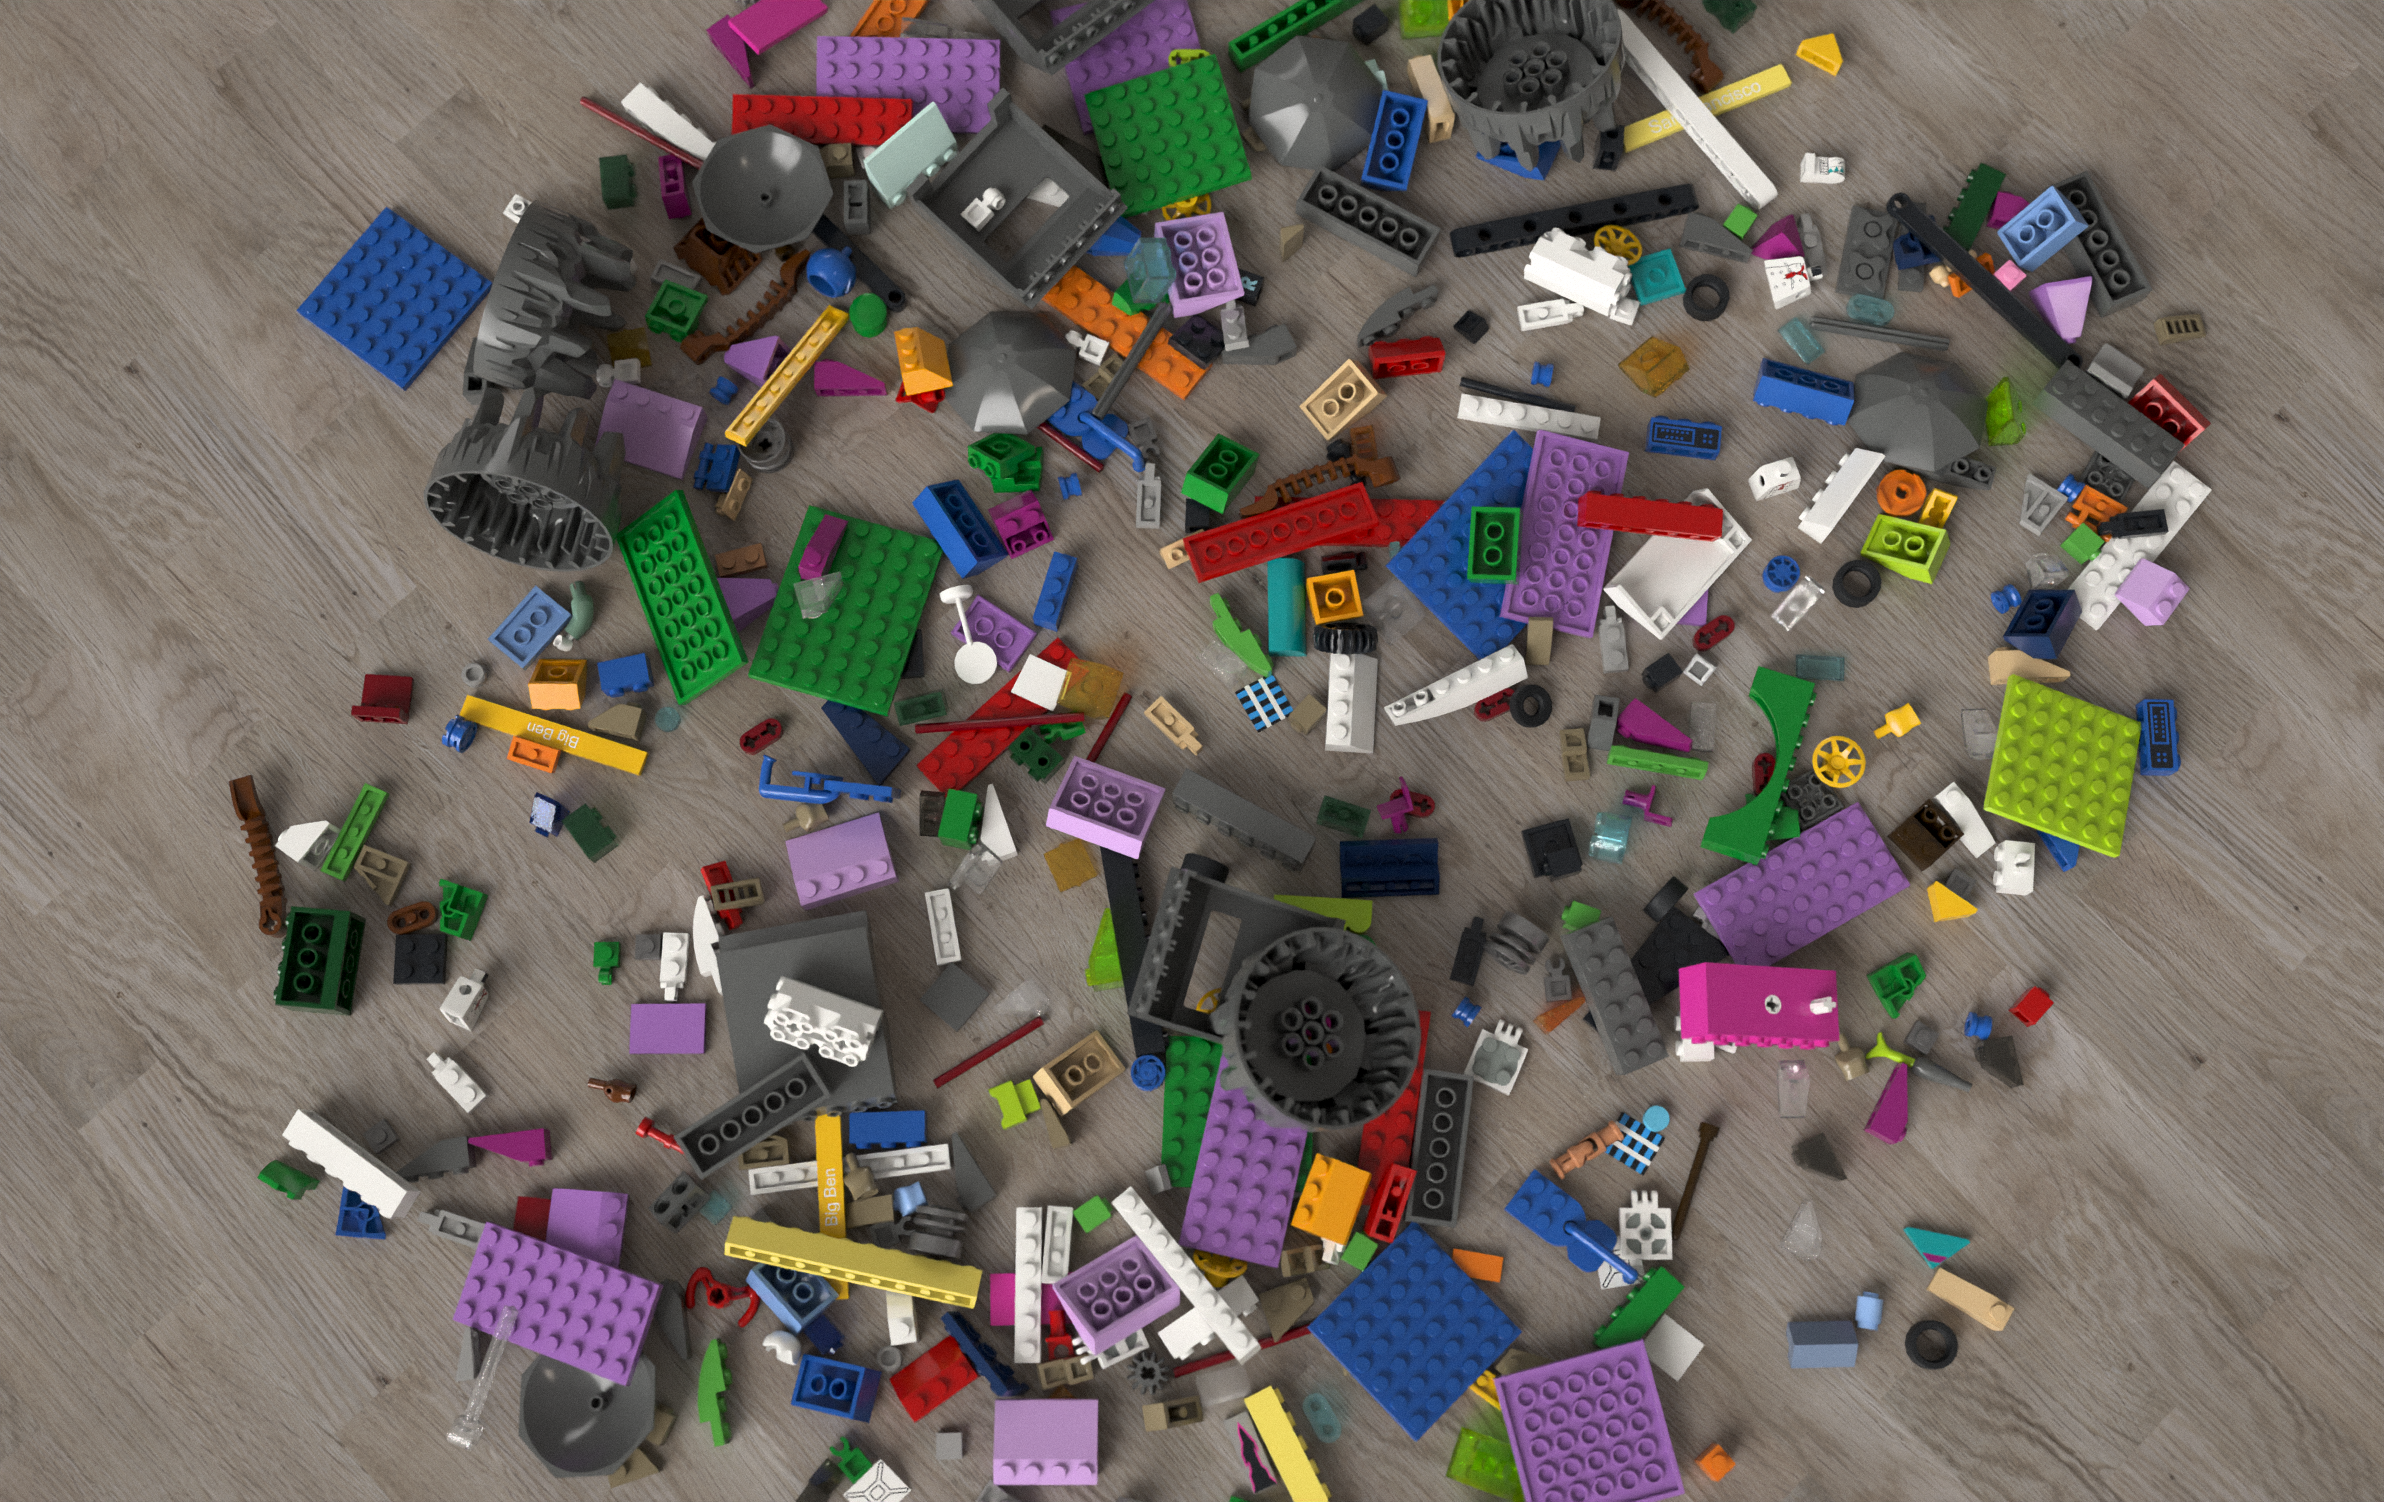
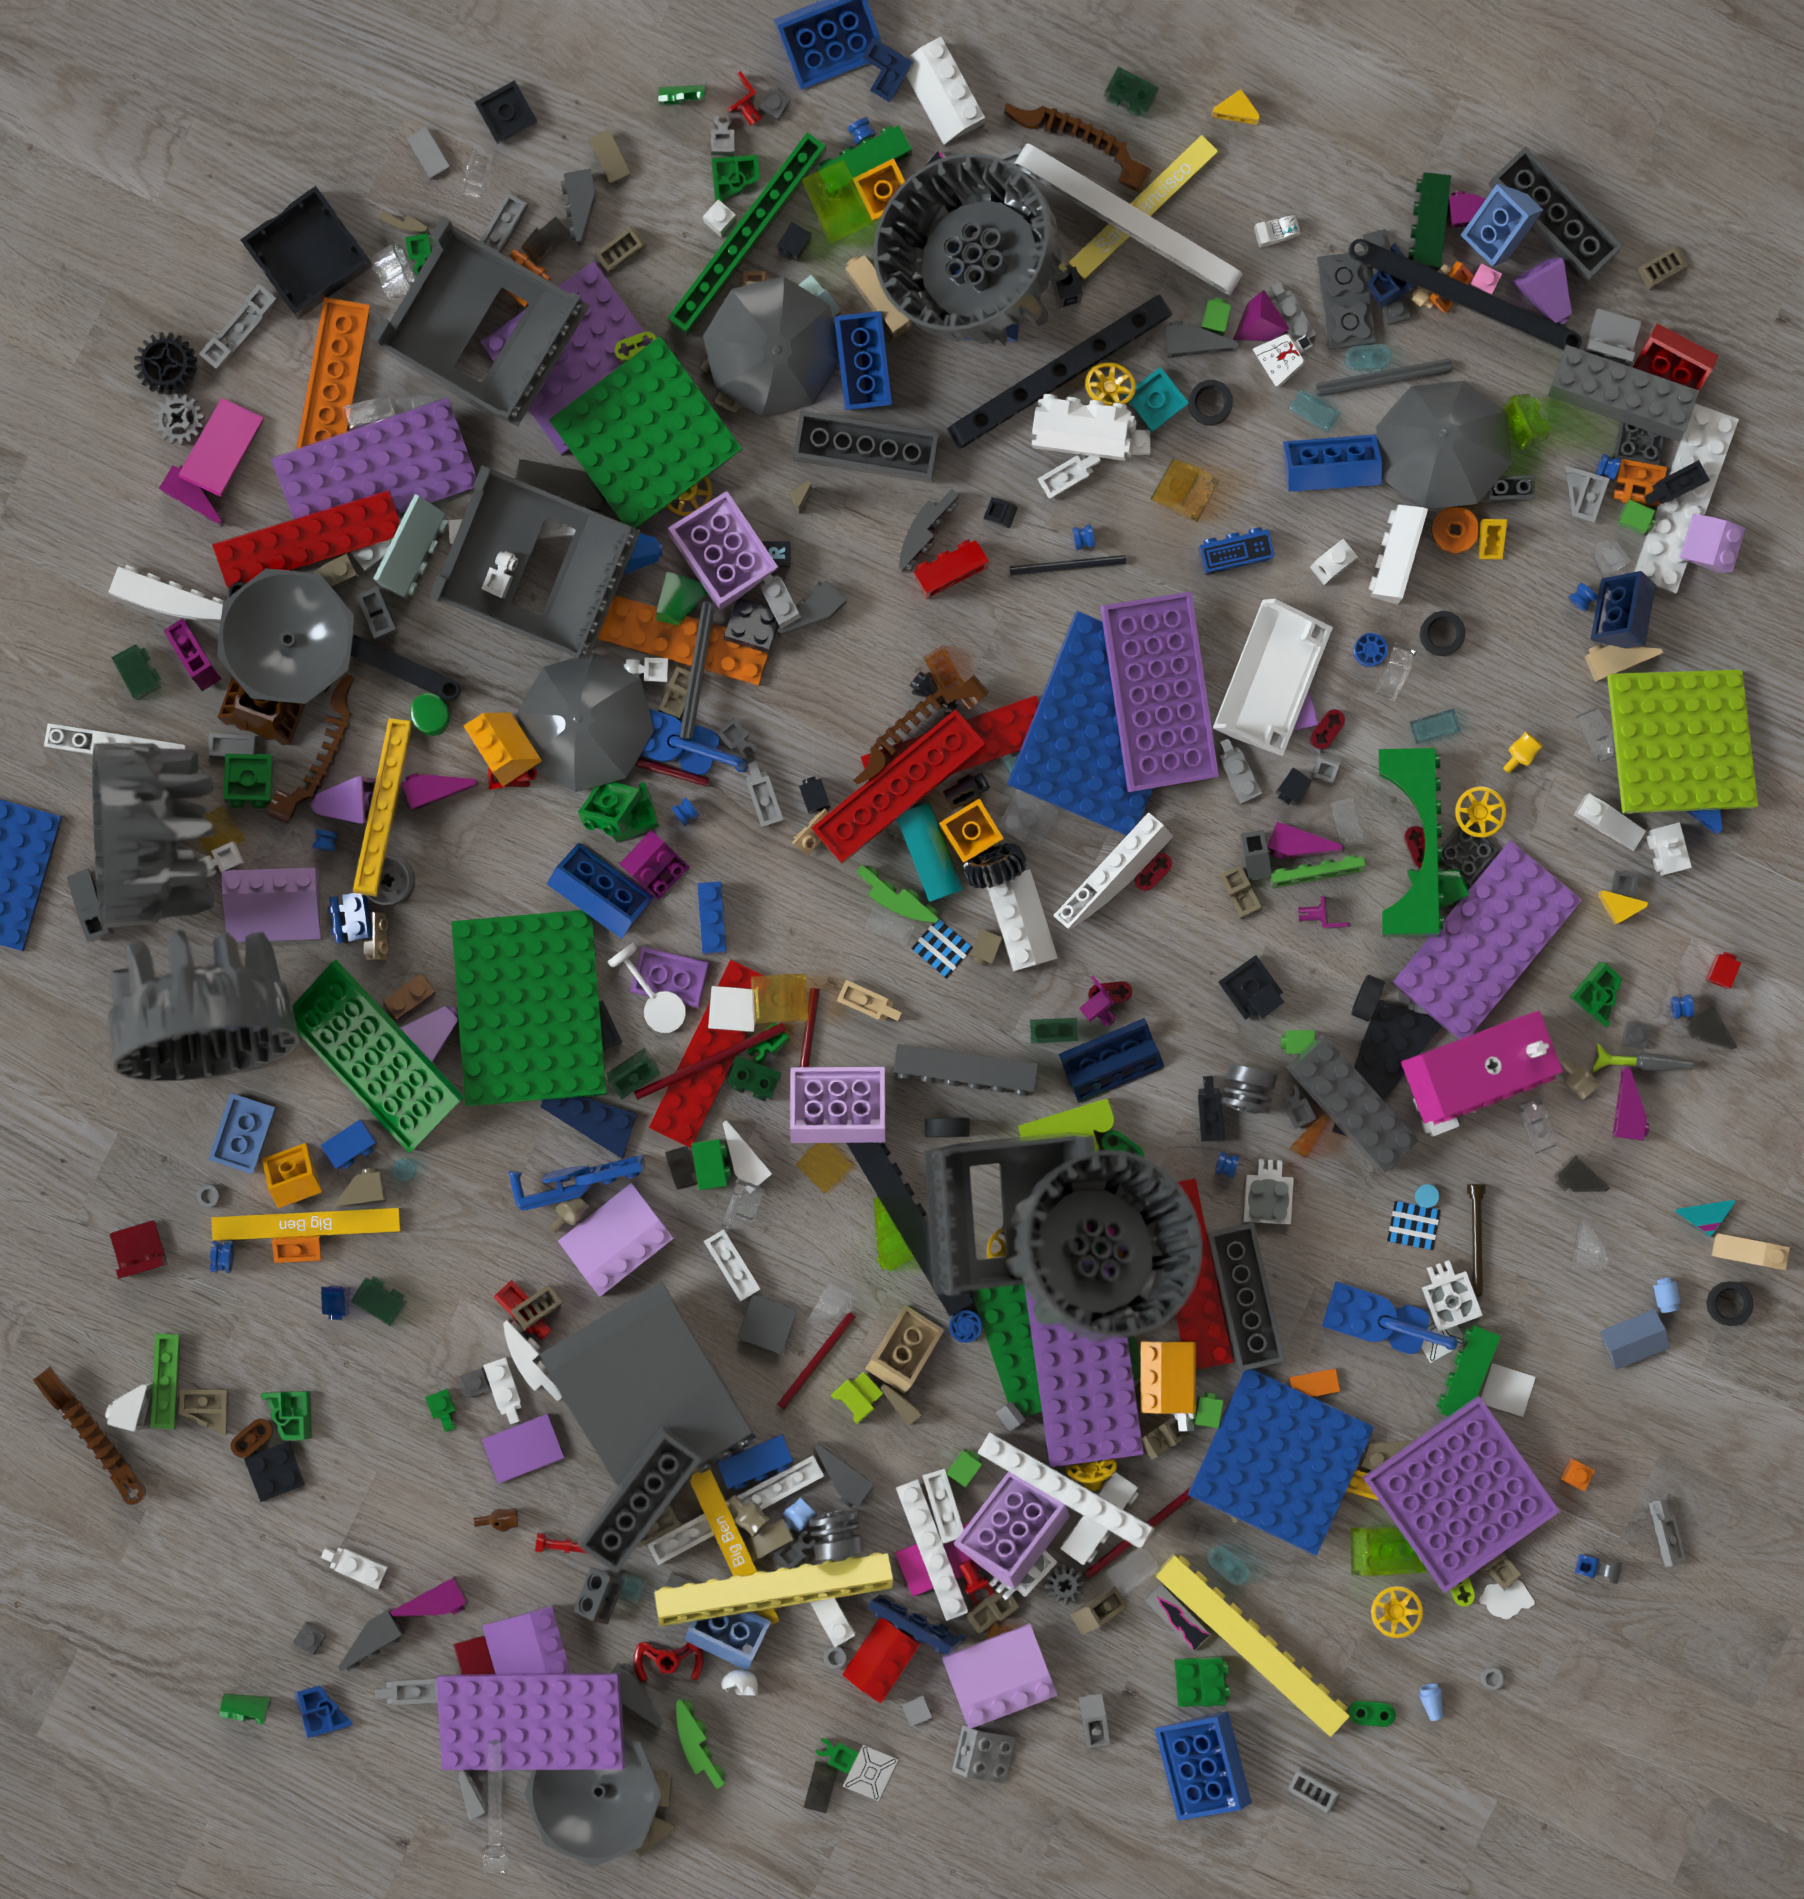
camera: 20 degrees left, 10 degrees up
(319, 961) = (204, 1504): dark green brick -> none
(351, 1164) = (296, 1673): white brick -> none
(466, 1000) = (334, 1502): white torso -> none
(582, 611) = (286, 1107): sand green arm -> none
(640, 132) = (142, 614): dark red piece -> none
(764, 741) = (491, 1150): dark red beam -> none
(813, 1015) = (663, 1395): white brick -> none
(817, 594) = (498, 1008): clear slope -> none
(822, 548) = (484, 961): magenta slope -> none
(825, 1335) = (772, 1659): clear blue brick -> none
(831, 271) = (380, 688): blue piece -> none
(836, 1388) = (800, 1700): blue slope -> none
(1149, 270) = (682, 580): clear light blue brick -> none
(1220, 473) = (822, 751): green brick -> none
(1286, 1305) = (1162, 1482): dark tan wing -> none
(1343, 399) = (907, 632): tan slope -> none
(1389, 1203) = (1220, 1363): red slope -> none
(1495, 545) = (1101, 732): green brick -> none
(1517, 706) = (1198, 859): black tyre -> none
(1528, 417) = (1086, 583): white plate -> none
(1538, 640) = (1171, 799): dark tan slope -> none
(1584, 1151) = (1369, 1255): nougat piece -> none
(1611, 837) = (1300, 959): clear light blue brick -> none
(1649, 516) = (1232, 647): red brick -> none
(1907, 547) = (1476, 581): lime slope -> none
(1925, 835) = (1580, 849): dark brown slope -> none
(2158, 737) = (1760, 678): blue brick -> none

